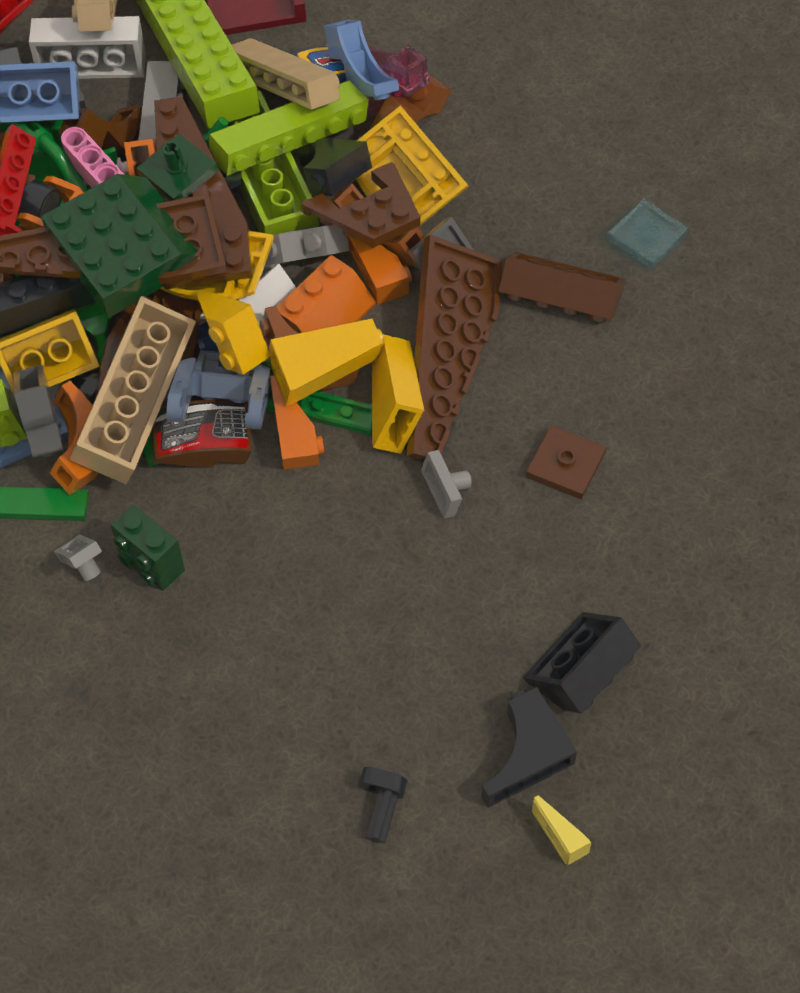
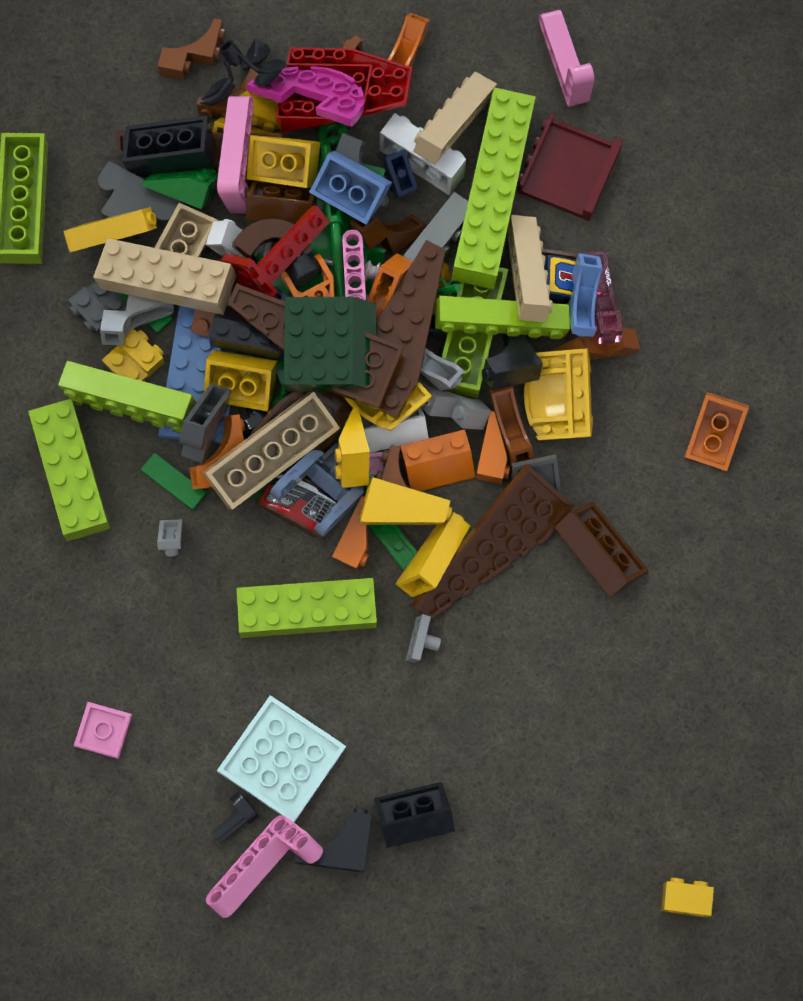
camera: 30 degrees right, 15 degrees up
(89, 77) = (399, 173): none -> dark blue slope
(147, 548) = (209, 556): dark green brick -> none
(148, 814) = (103, 730): none -> bright pink tile
(177, 168) = (401, 309): dark green tile -> none
(268, 206) = (440, 372): none -> light grey arch
(292, 531) = (306, 607): none -> lime brick
(372, 218) = (510, 424): reddish brown wing -> none
(385, 705) = (281, 759): none -> light aqua plate
(446, 821) = (258, 861): none -> bright pink beam
(565, 837) = (321, 918): light yellow slope -> none
(566, 462) = (508, 675): reddish brown plate -> none
(587, 114) = (717, 431): none -> orange slope
(648, 233) = (686, 548): clear light blue plate -> none

